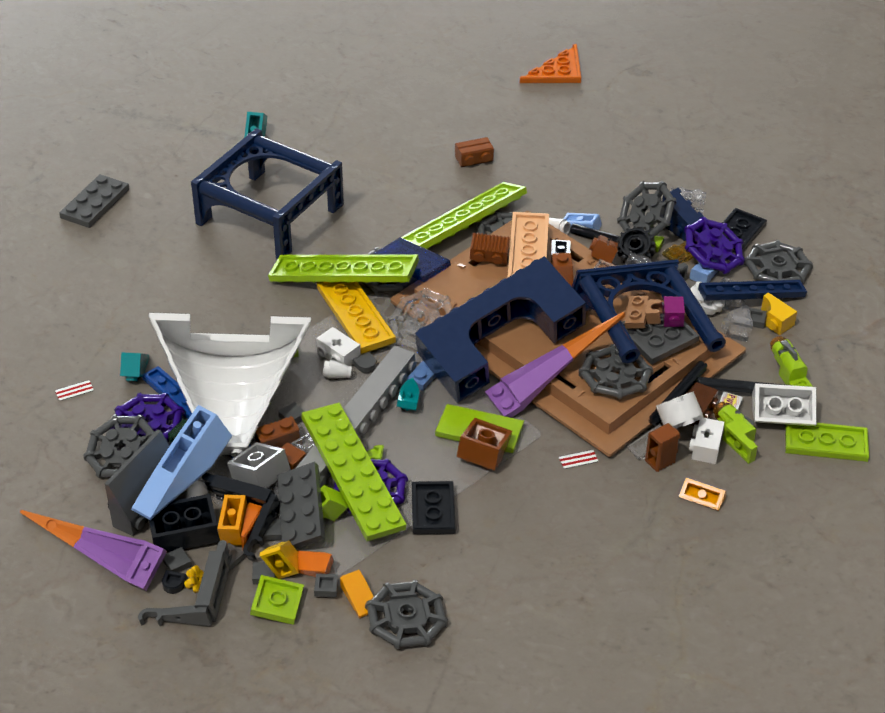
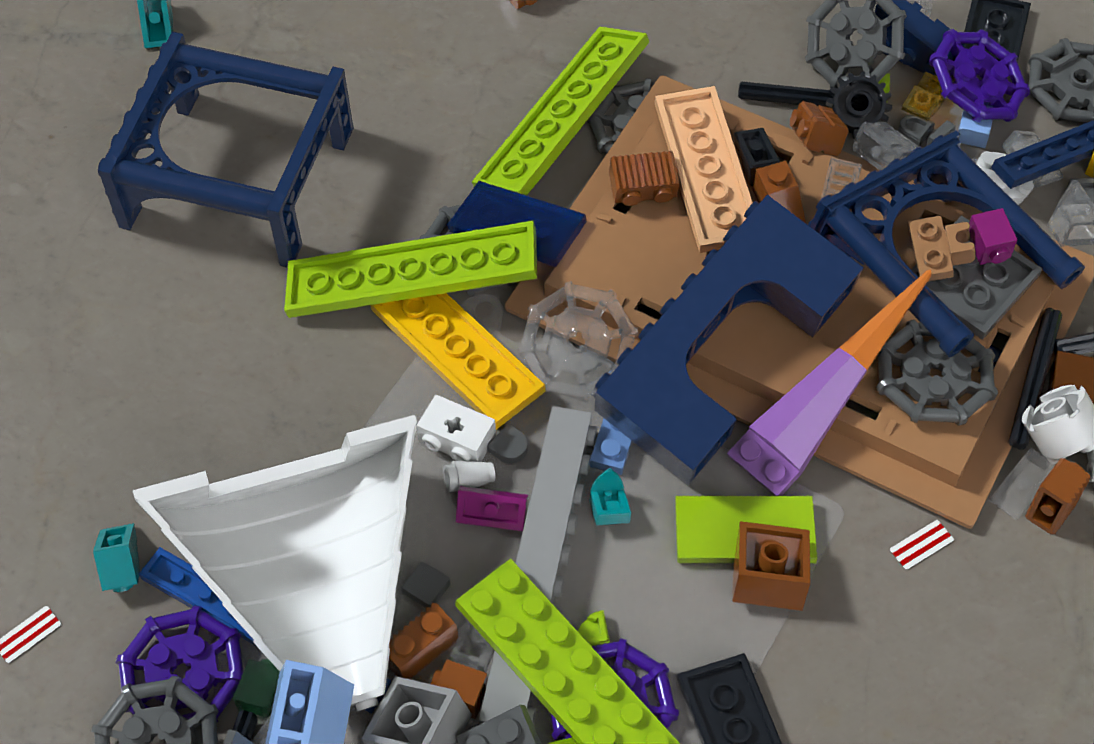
camera: 15 degrees left, 15 degrees up
(340, 385) = (491, 508): none -> magenta plate
(561, 224) = (725, 89): white cone -> none
(588, 220) = (755, 70): light blue slope -> none

